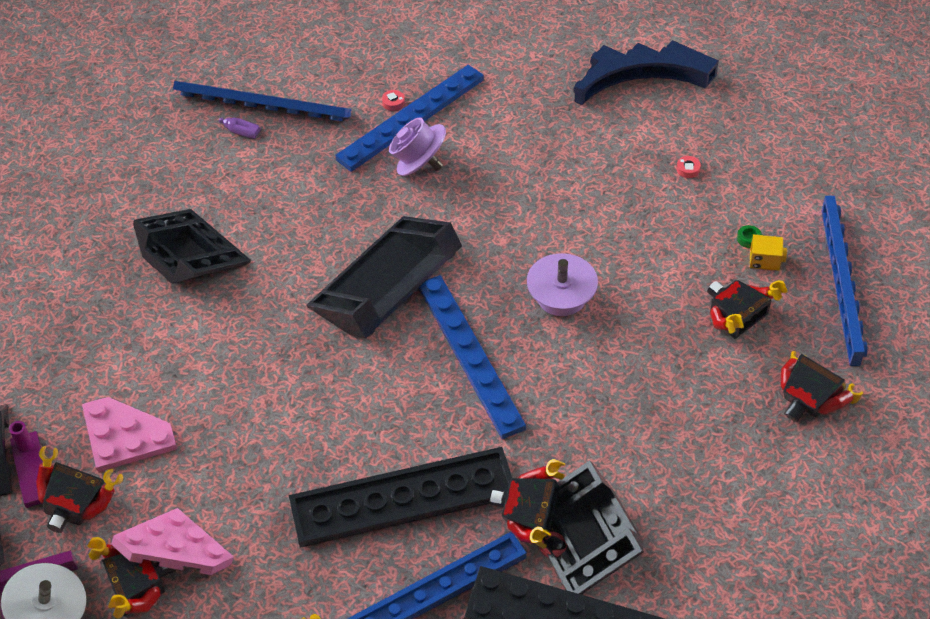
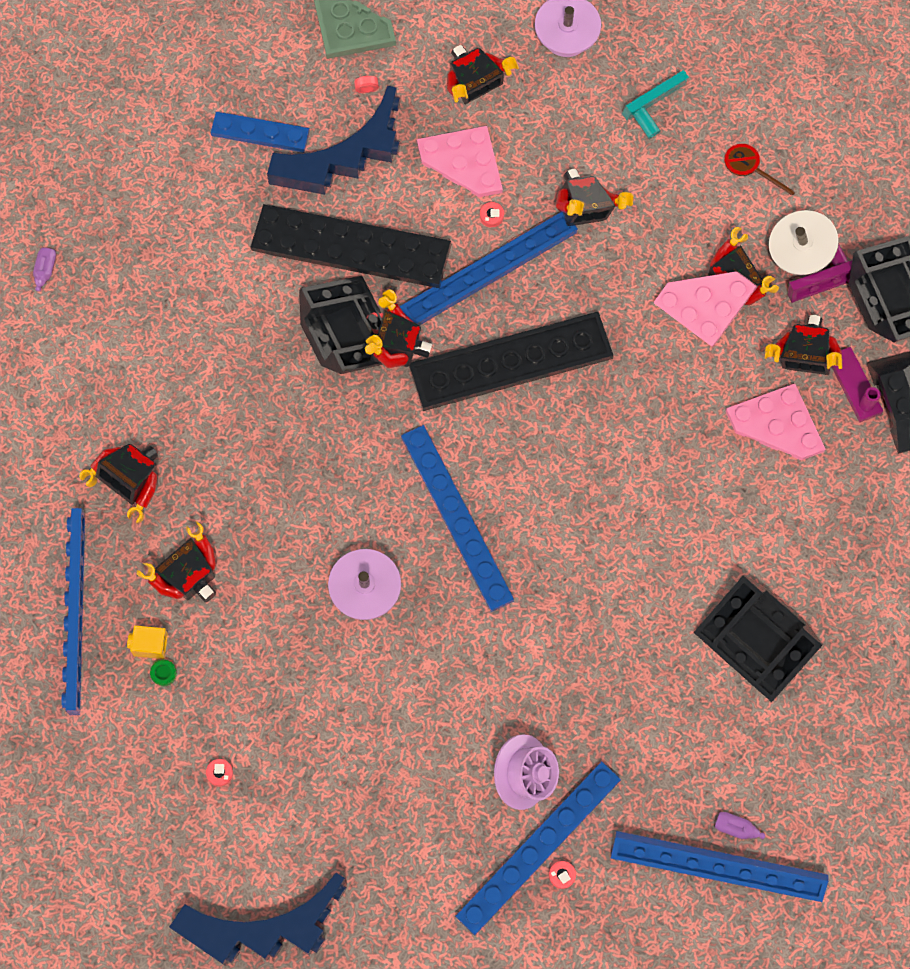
camera: 175 degrees right, 20 degrees up
(386, 275) = (549, 609): black slope -> none

